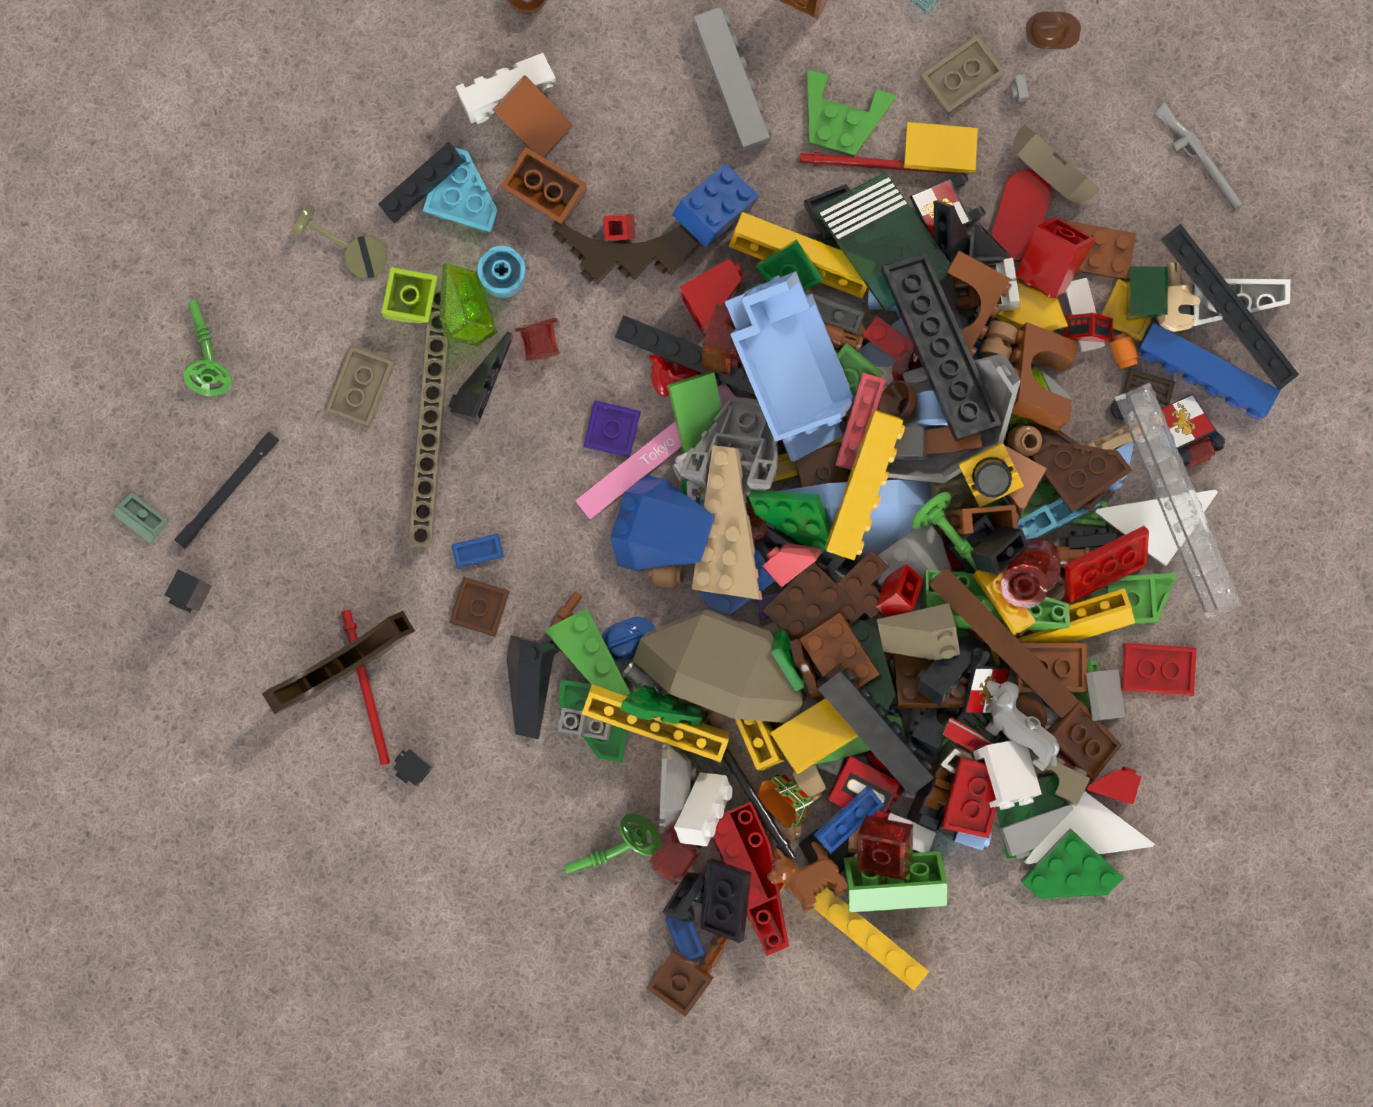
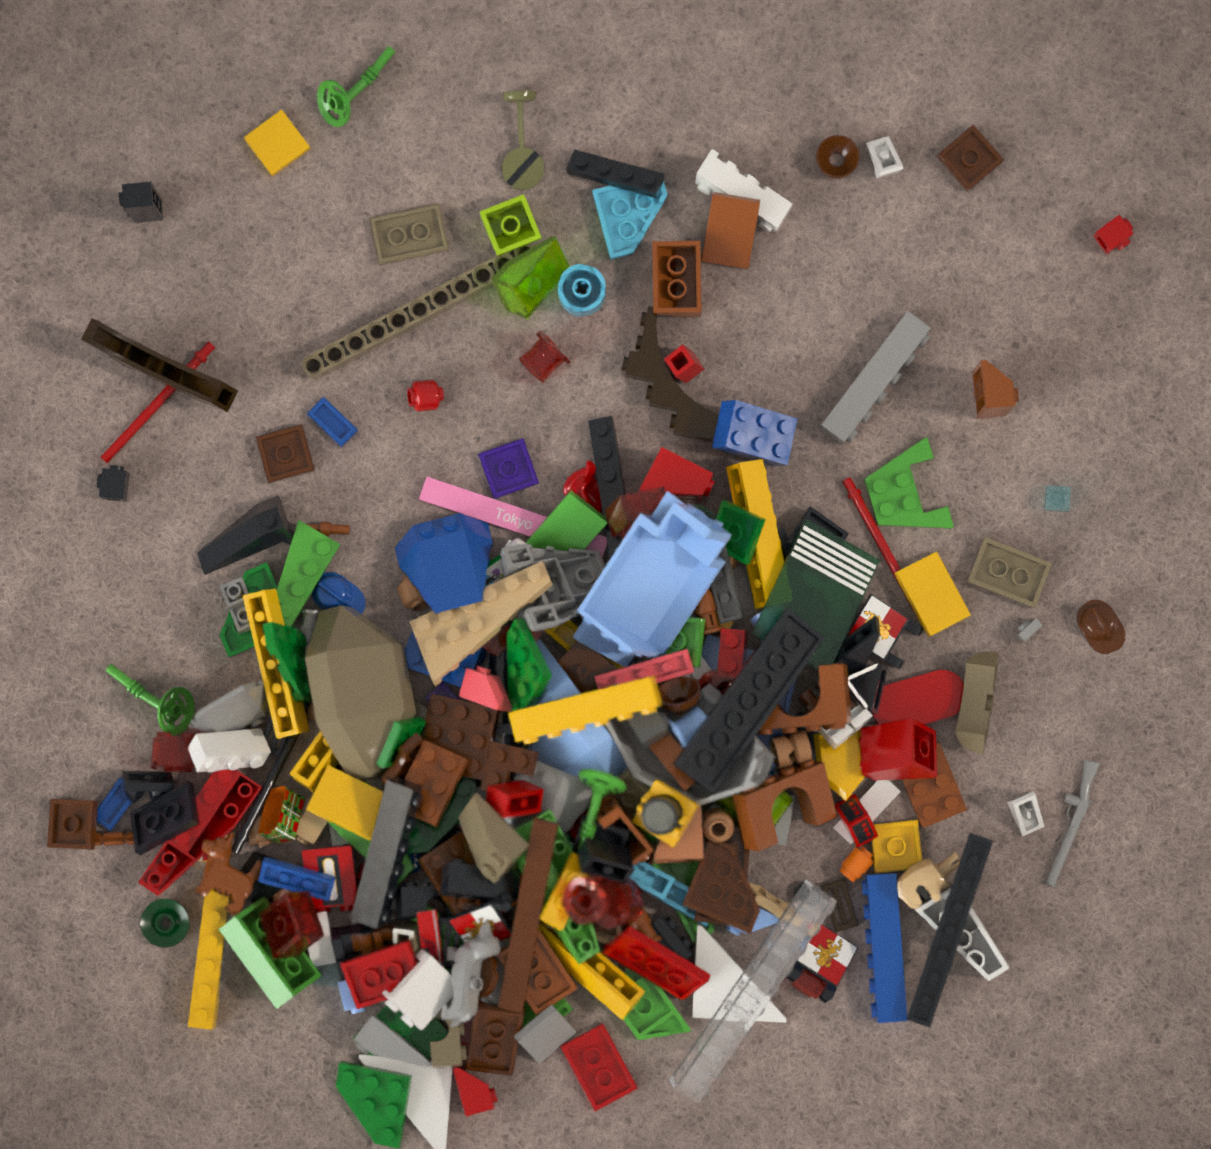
camera: 60 degrees right, 0 degrees up
(140, 517) = (182, 124): sand green slope -> none
(192, 529) = (200, 173): black piece -> none
(209, 448) = (277, 143): none -> yellow tile
(475, 392) = (466, 333): black wedge -> none
(506, 458) = (425, 395): none -> red head
(825, 956) = (152, 925): none -> dark green dish
(1147, 292) = (917, 850): dark green slope -> none
(1168, 186) = (1026, 813): none -> white slope

